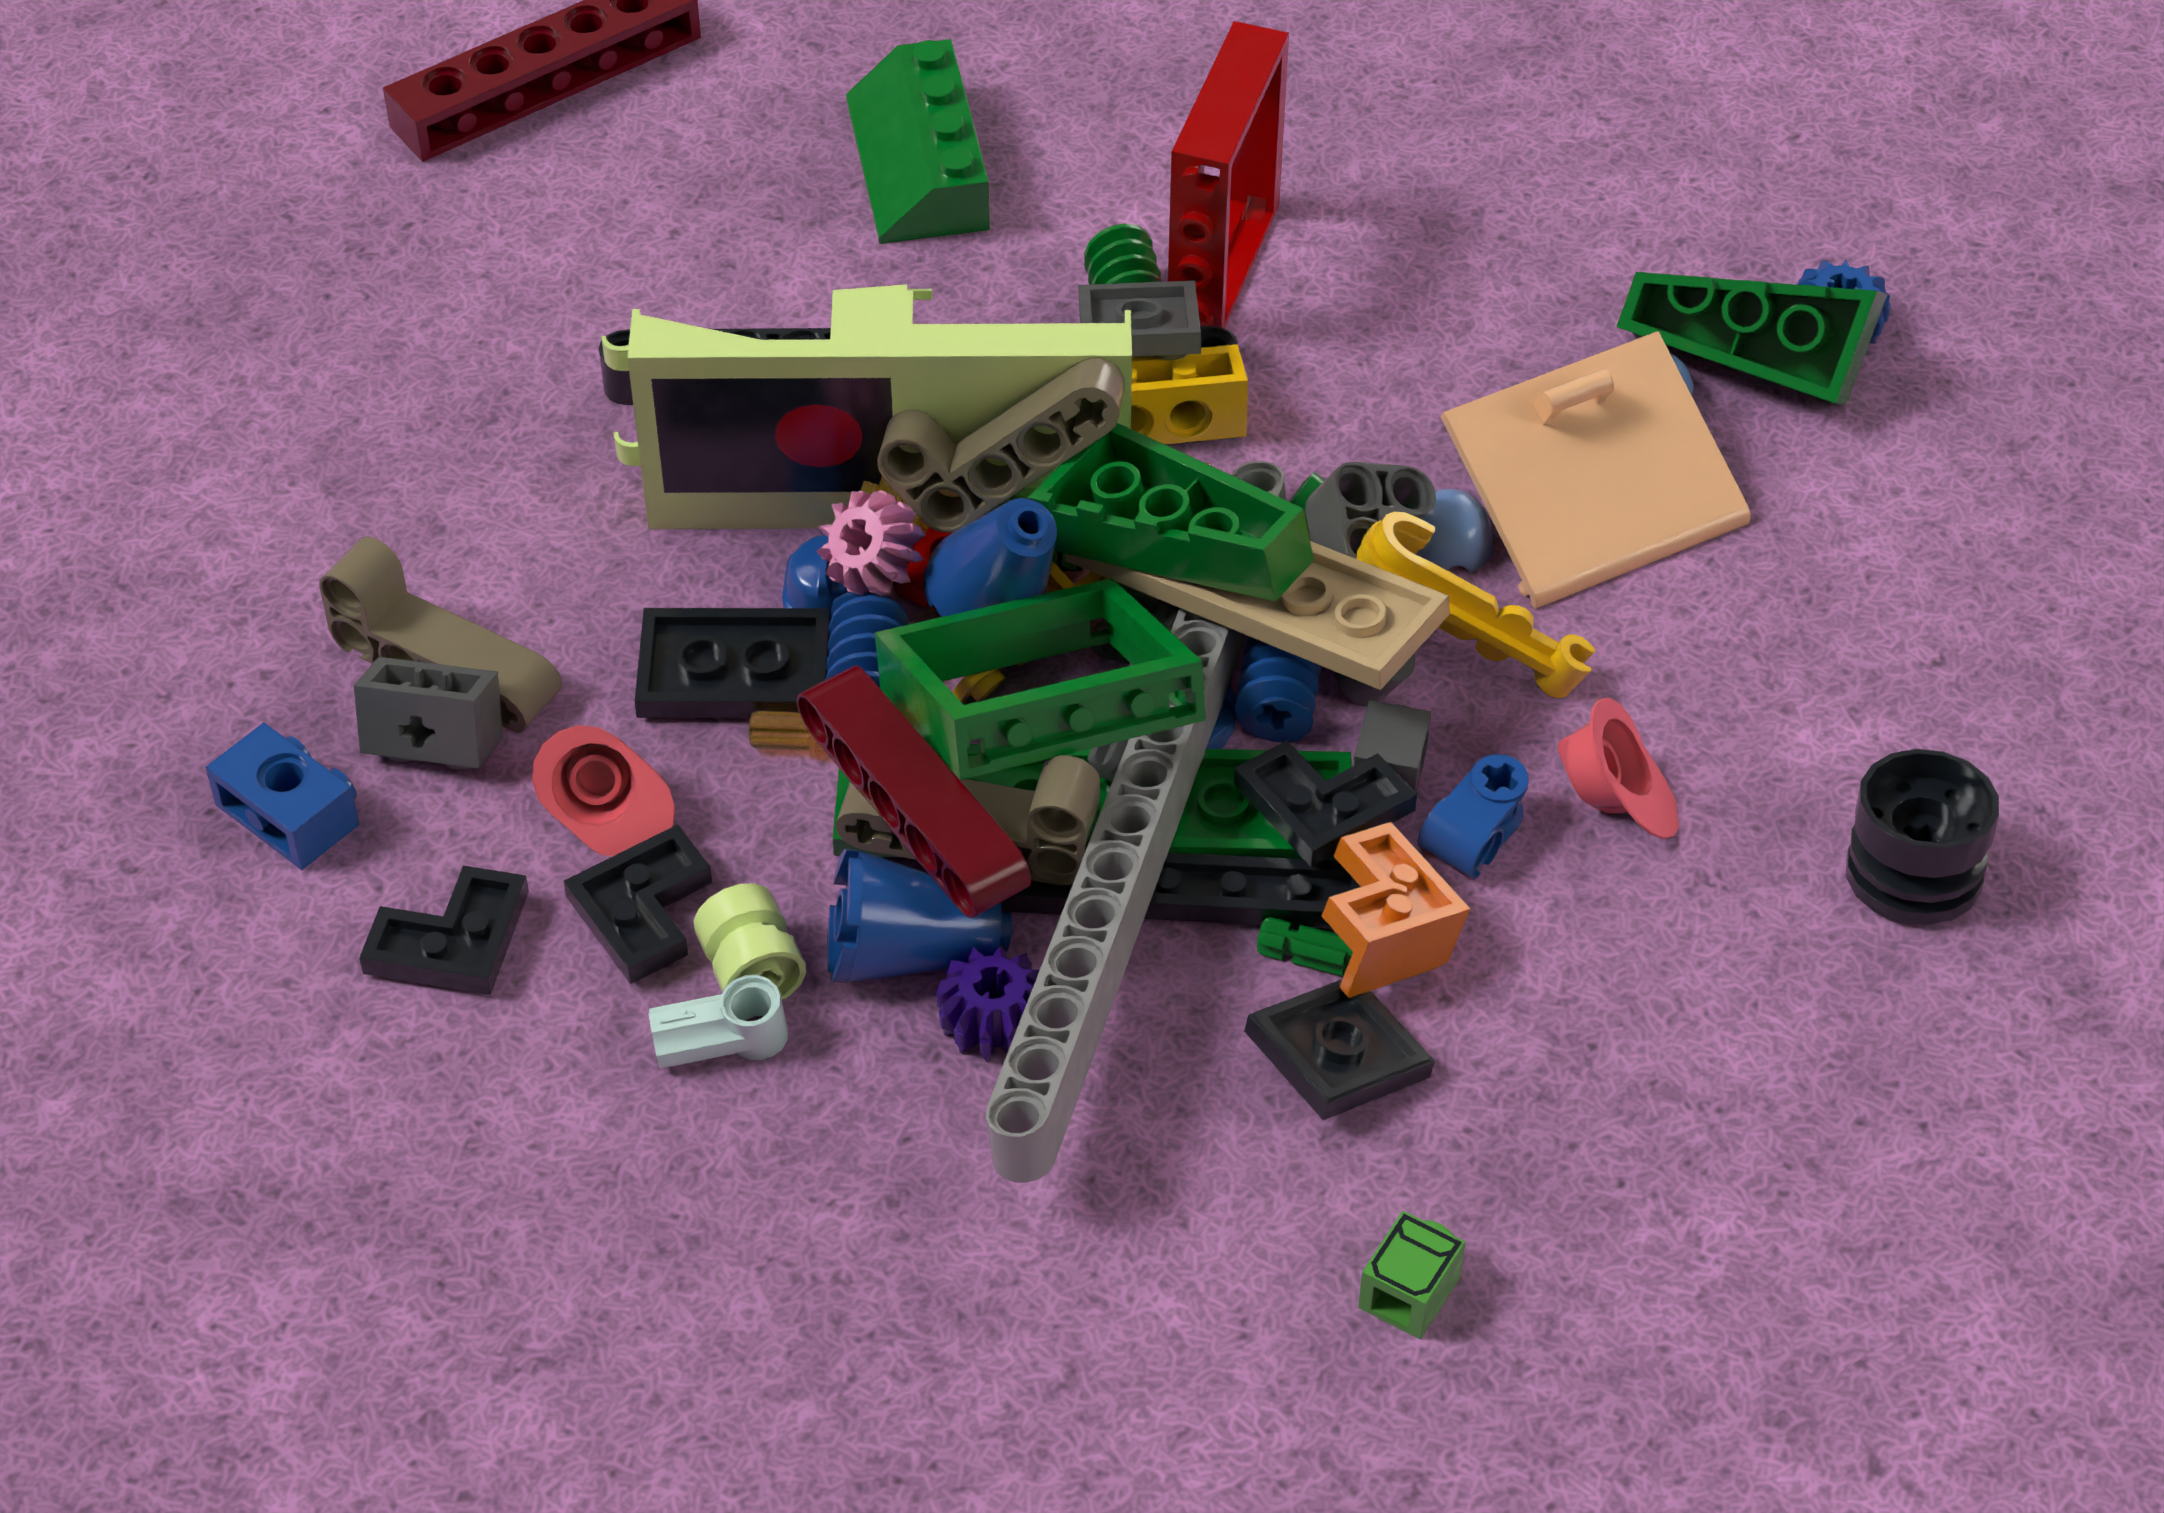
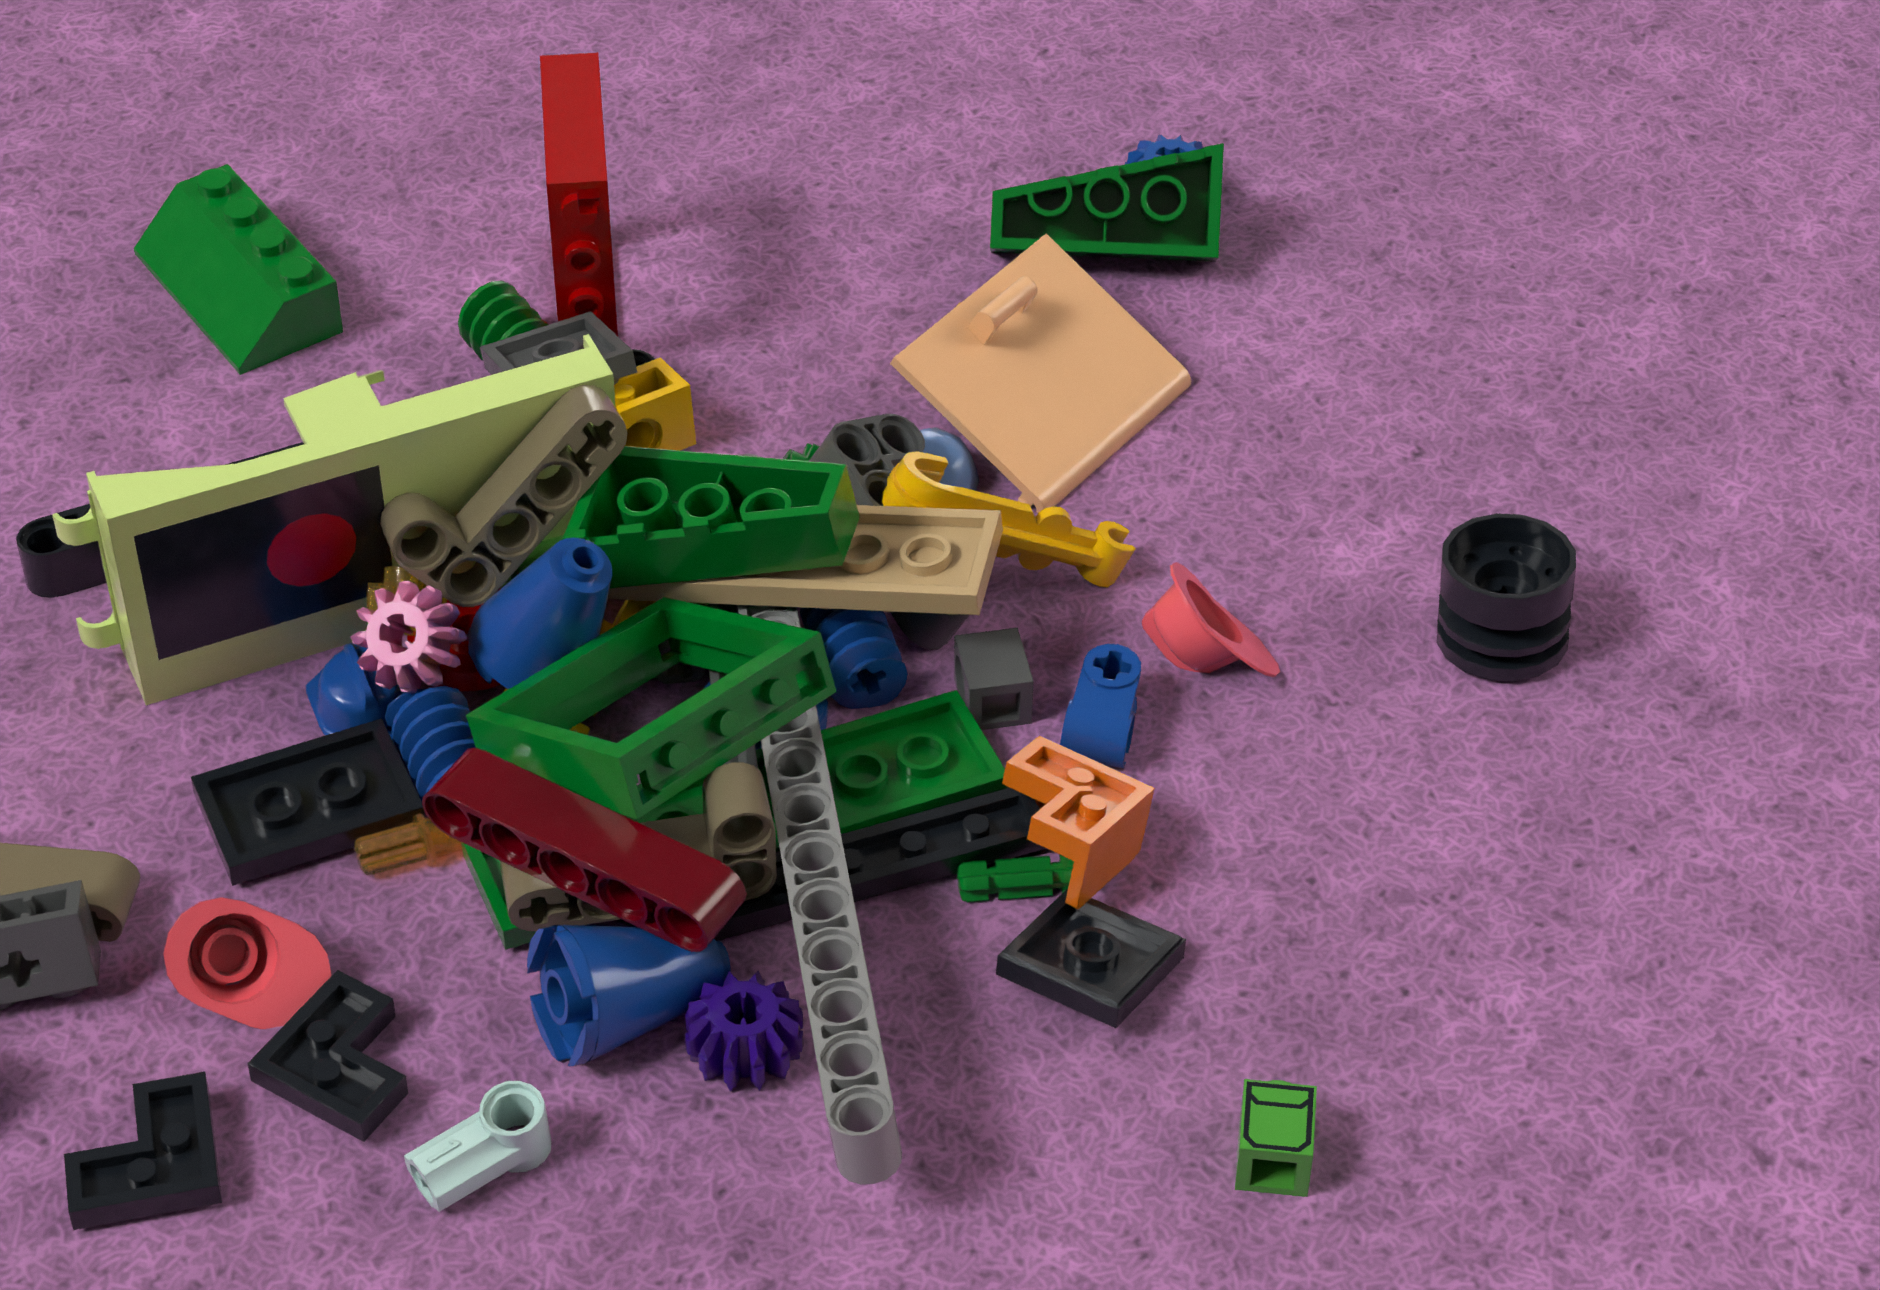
camera: 25 degrees left, 5 degrees down
(748, 936) = (468, 1052): yellowish green wheel -> none
(1318, 811) = (962, 751): black plate -> none

